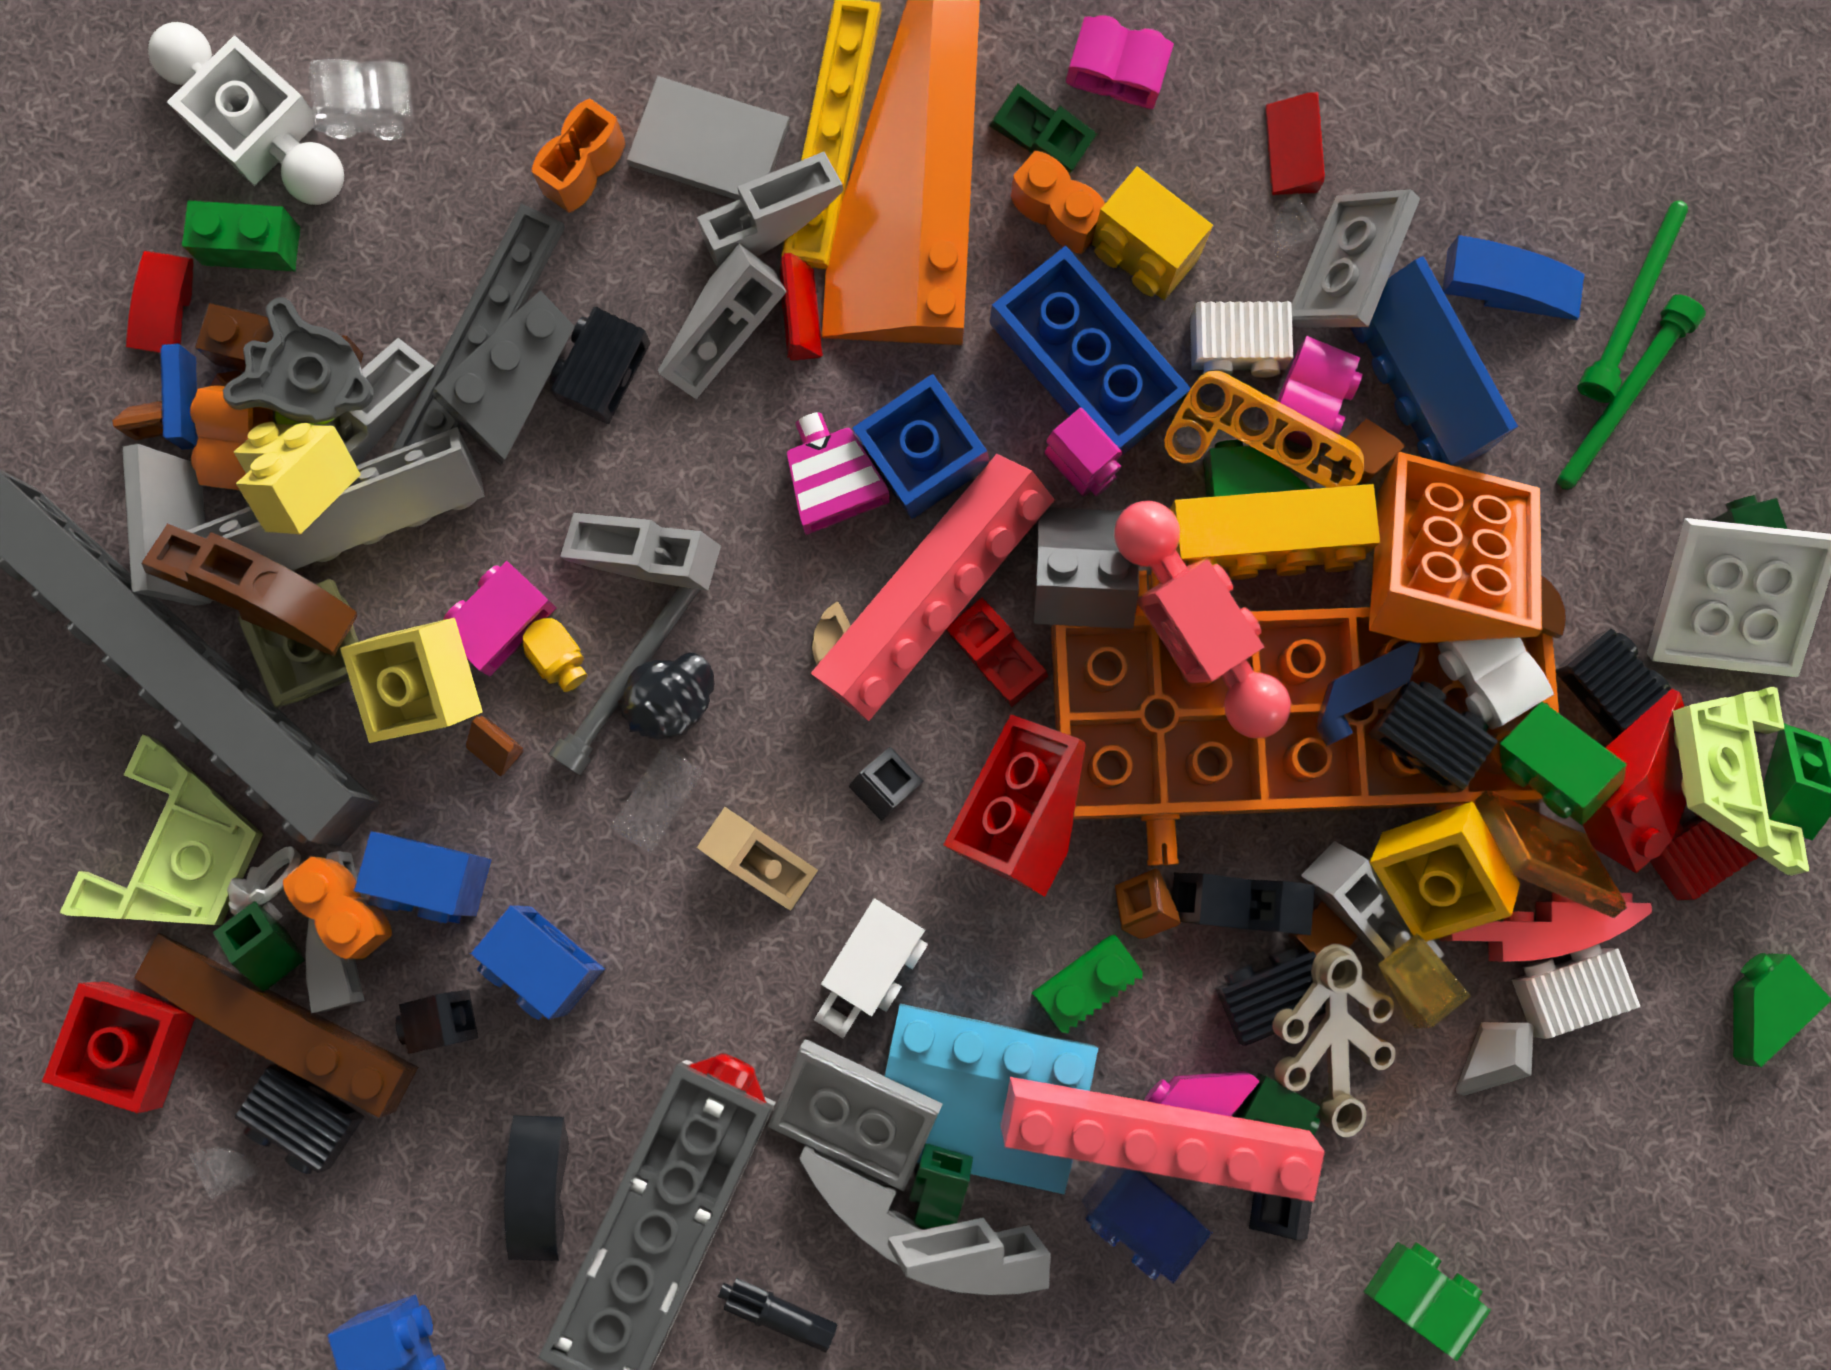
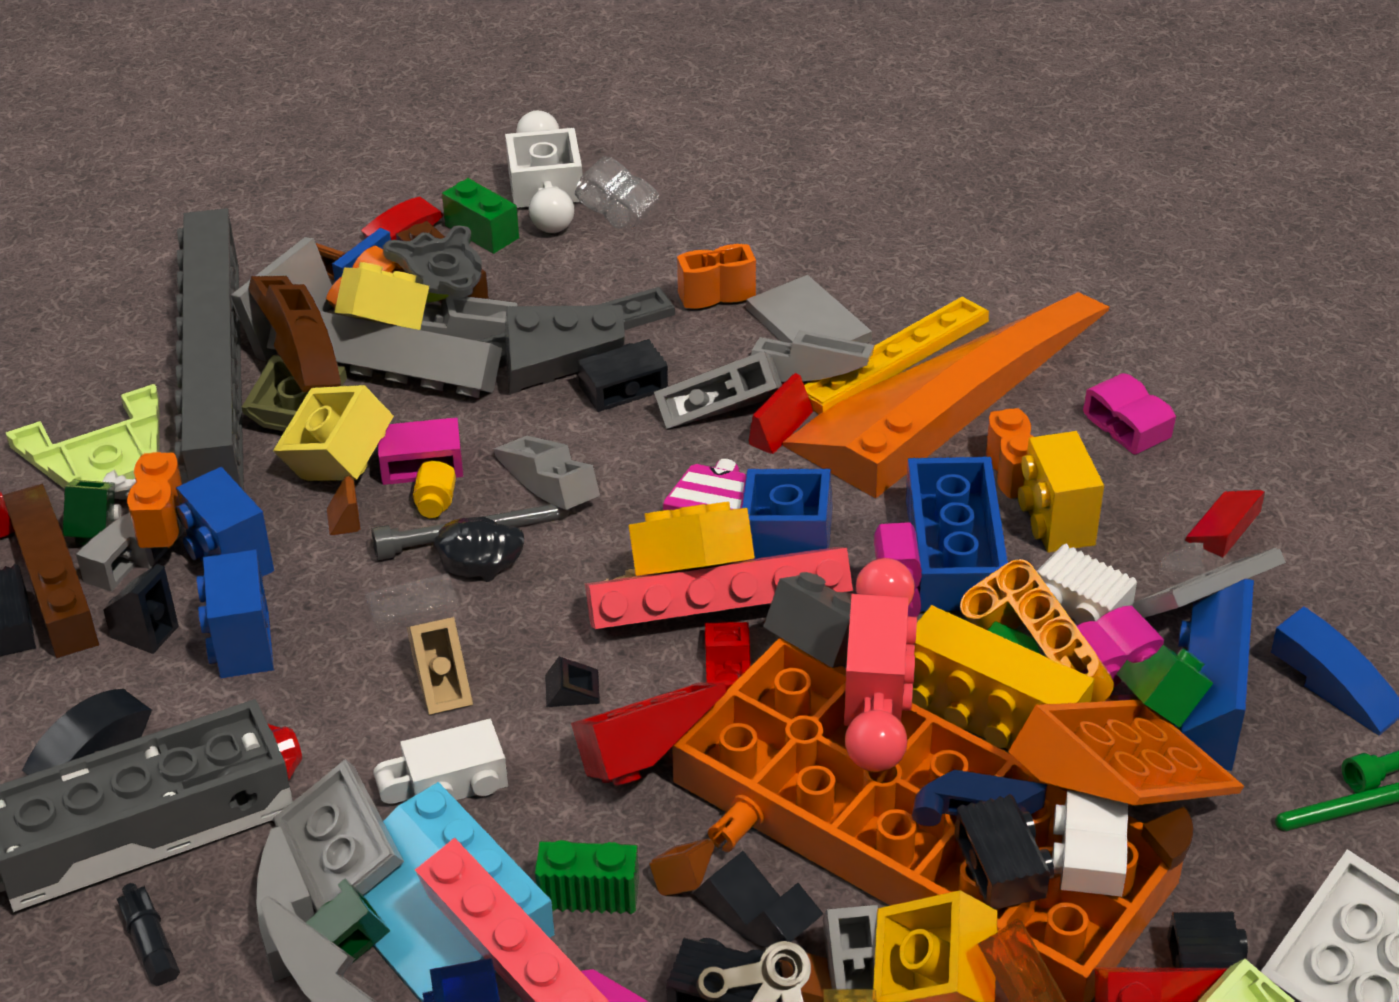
camera: 40 degrees right, 40 degrees down
(883, 566) = (691, 538): none -> yellow brick
(1042, 129) = (1041, 412): dark green slope -> none
(1415, 430) = (1168, 683): none -> green arch
(1561, 764) = (1091, 921): green brick -> none

